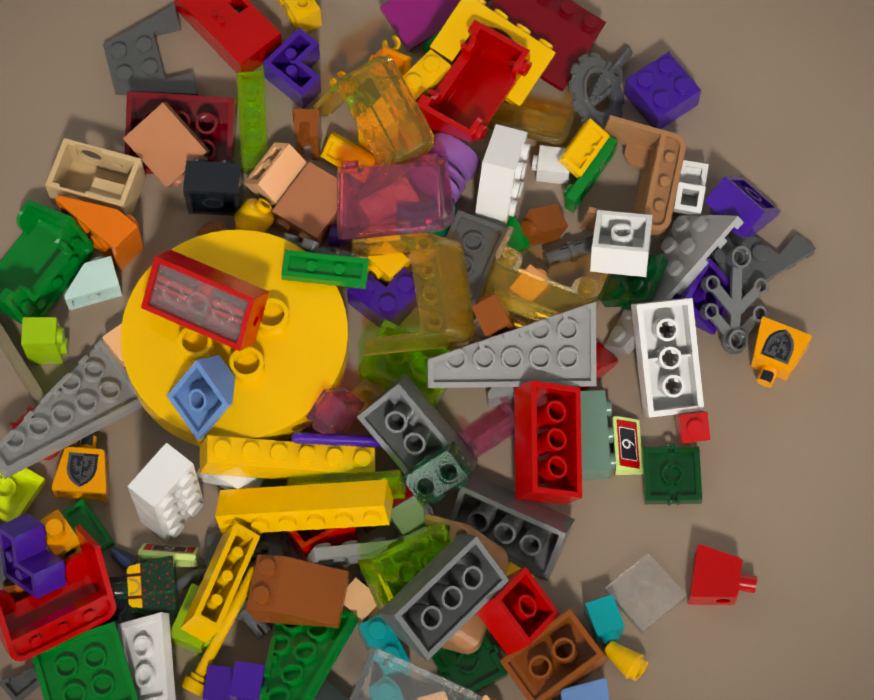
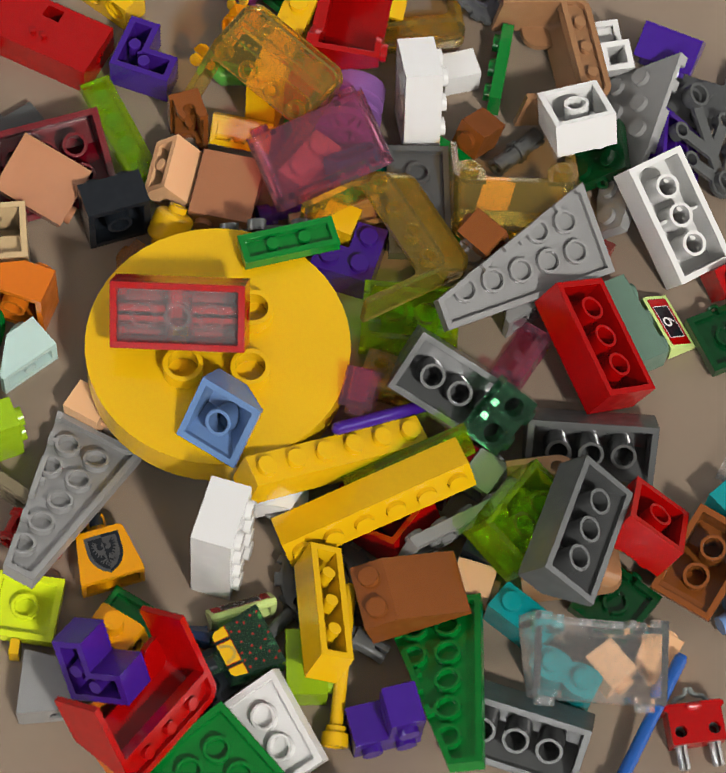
camera: 30 degrees left, 5 degrees down
(583, 148) = (485, 42): yellow plate -> none

